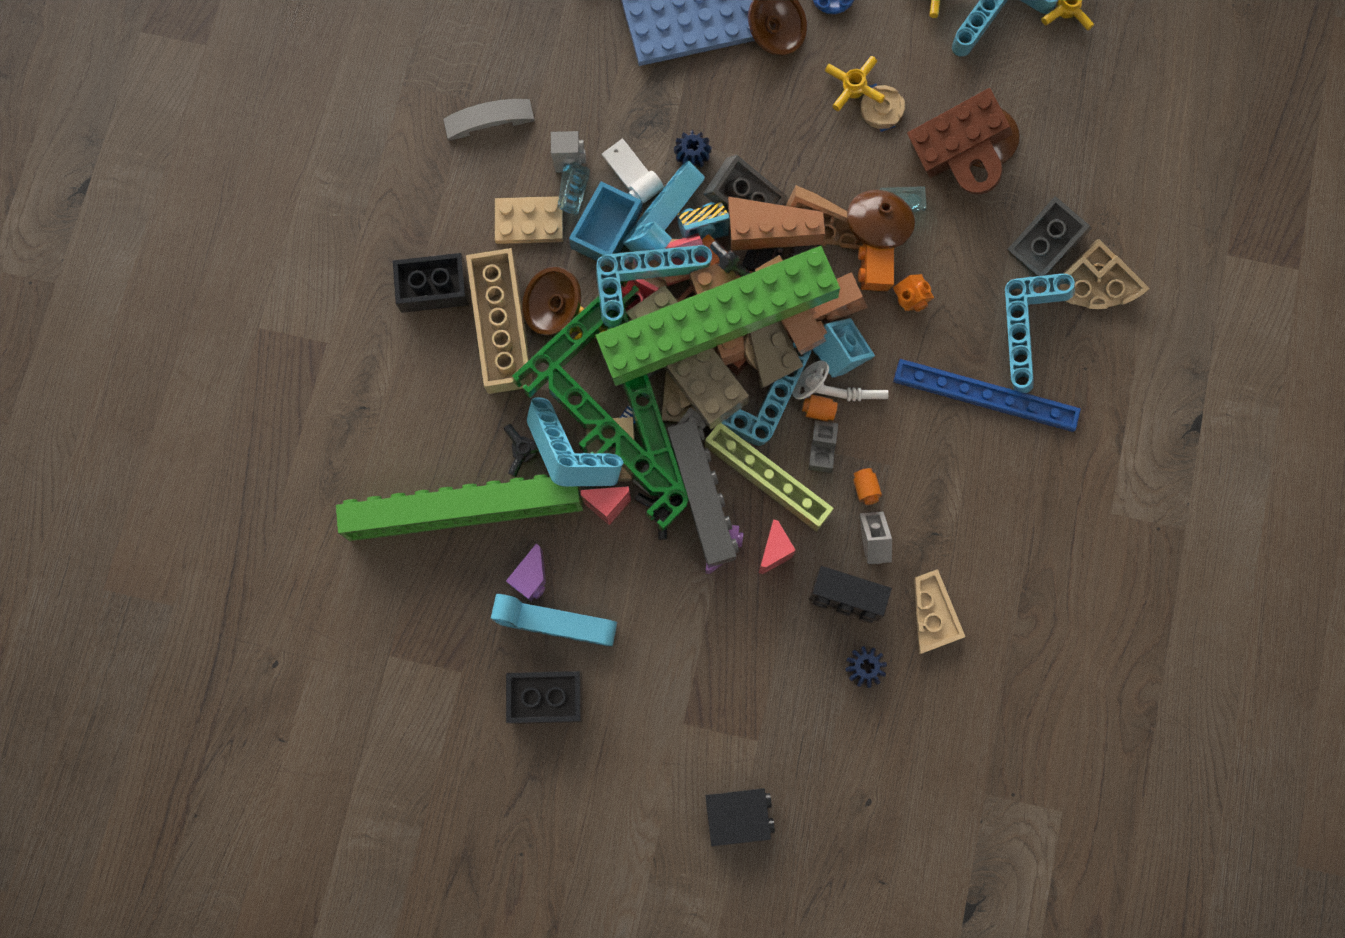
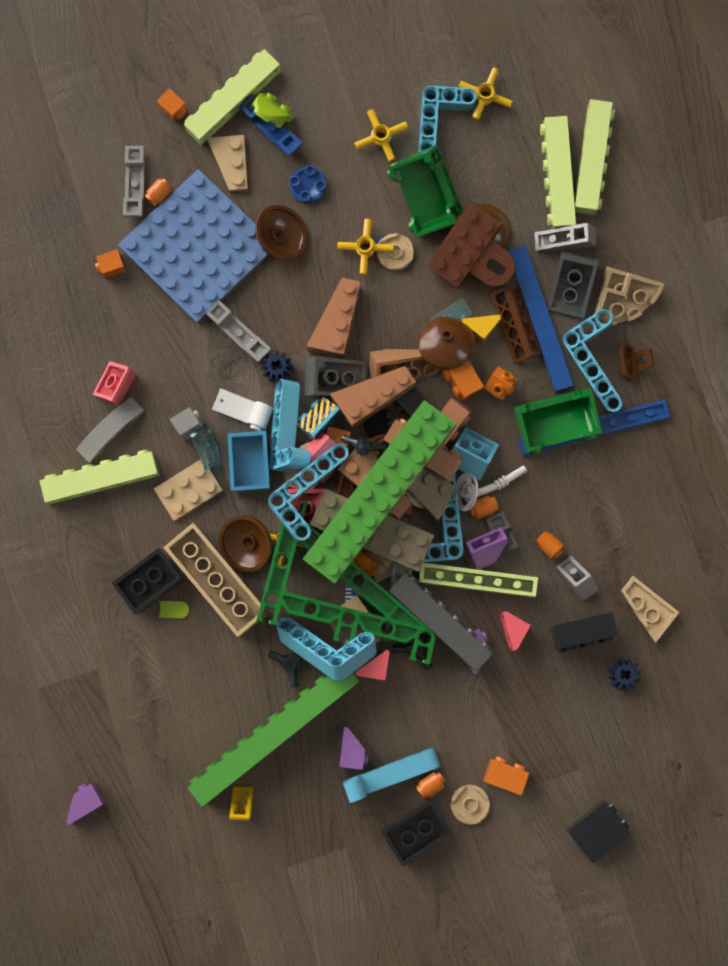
camera: 30 degrees left, 5 degrees up
(228, 464) = (84, 802): none -> medium lavender slope
(383, 560) = (241, 803): none -> yellow slope
(439, 328) = (173, 609): none -> lime piece
(448, 157) = (100, 477): none -> yellowish green brick
(522, 77) = (114, 383): none -> coral slope
(590, 659) = (431, 785): none -> orange brick
(619, 706) = (470, 804): none -> tan tile
(661, 388) = (366, 563): none -> orange brick
(674, 93) = (238, 331): none -> light grey slope
(674, 697) = (506, 776): none -> orange brick
(782, 137) = (335, 325): none -> nougat wedge
(798, 449) = (487, 548): none -> medium lavender slope
(929, 226) = (482, 326): none -> yellow slope
(952, 56) = (427, 190): none -> green windscreen
(952, 361) = (557, 420): none -> green windscreen
(972, 243) = (522, 323): none -> reddish brown fence
(994, 255) = (541, 320): none -> blue tile
(1065, 348) = (630, 361): none -> reddish brown bracket
(1073, 189) = (566, 238): none -> light grey slope
(1100, 121) = (559, 172): none -> yellowish green brick
(1146, 123) = (593, 156): none -> yellowish green brick

